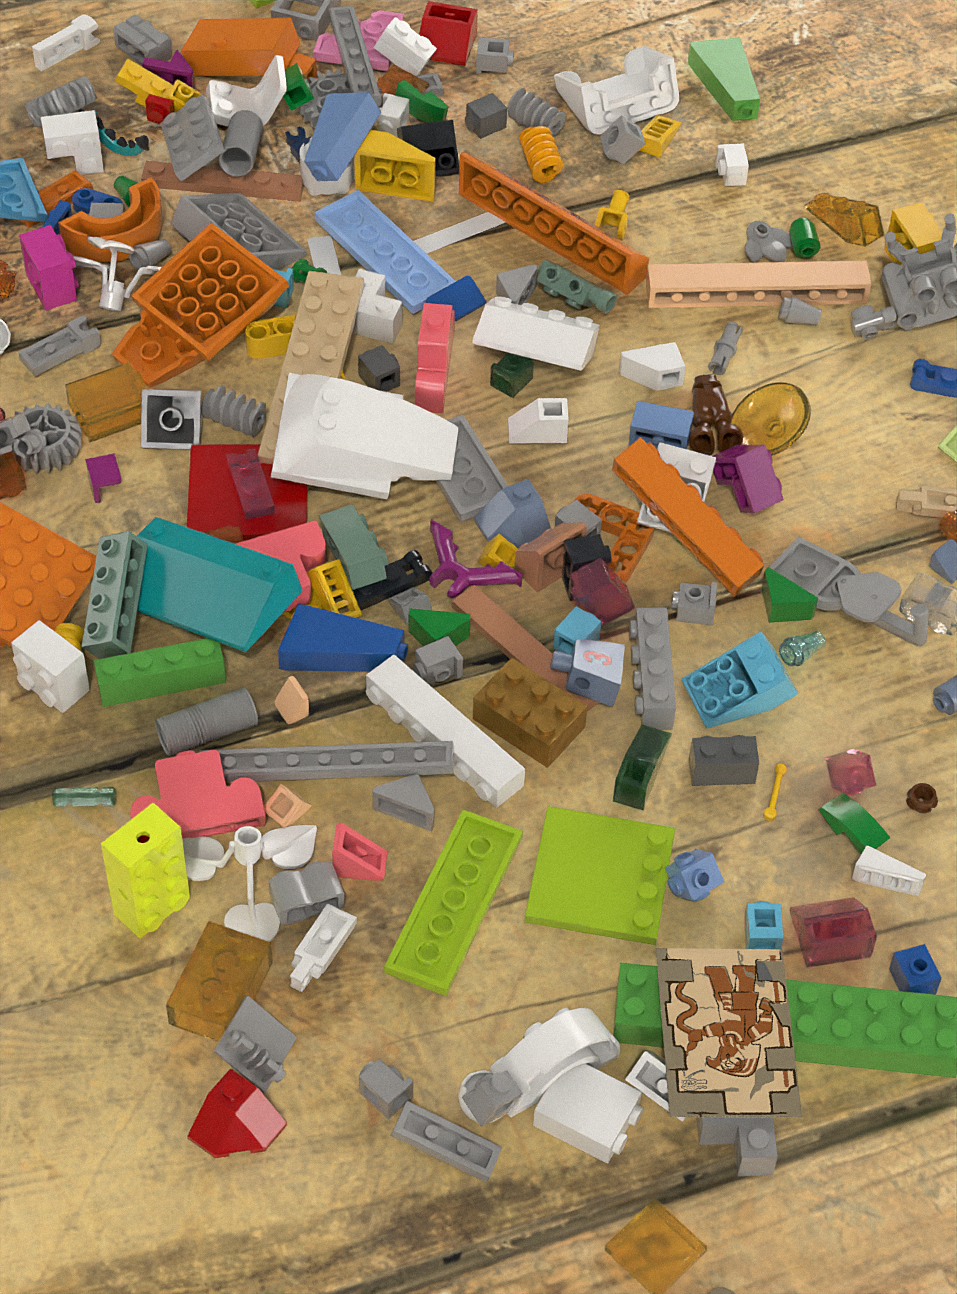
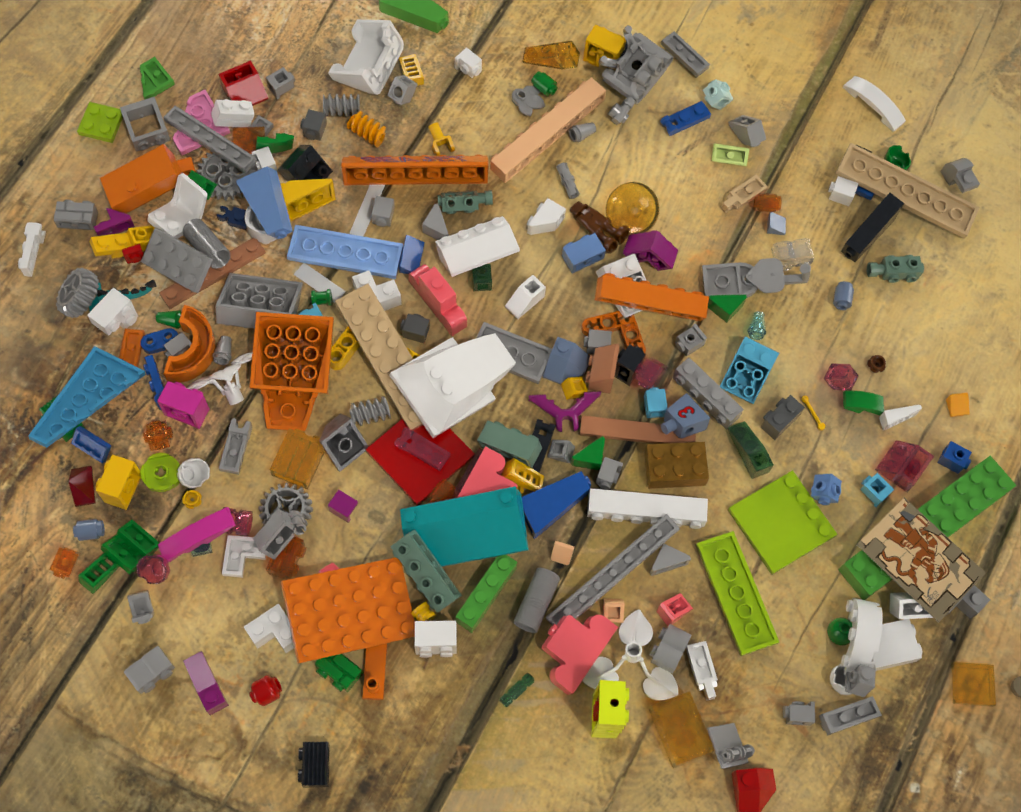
camera: 45 degrees left, 15 degrees up
(470, 239) = (383, 211): none -> light grey brick

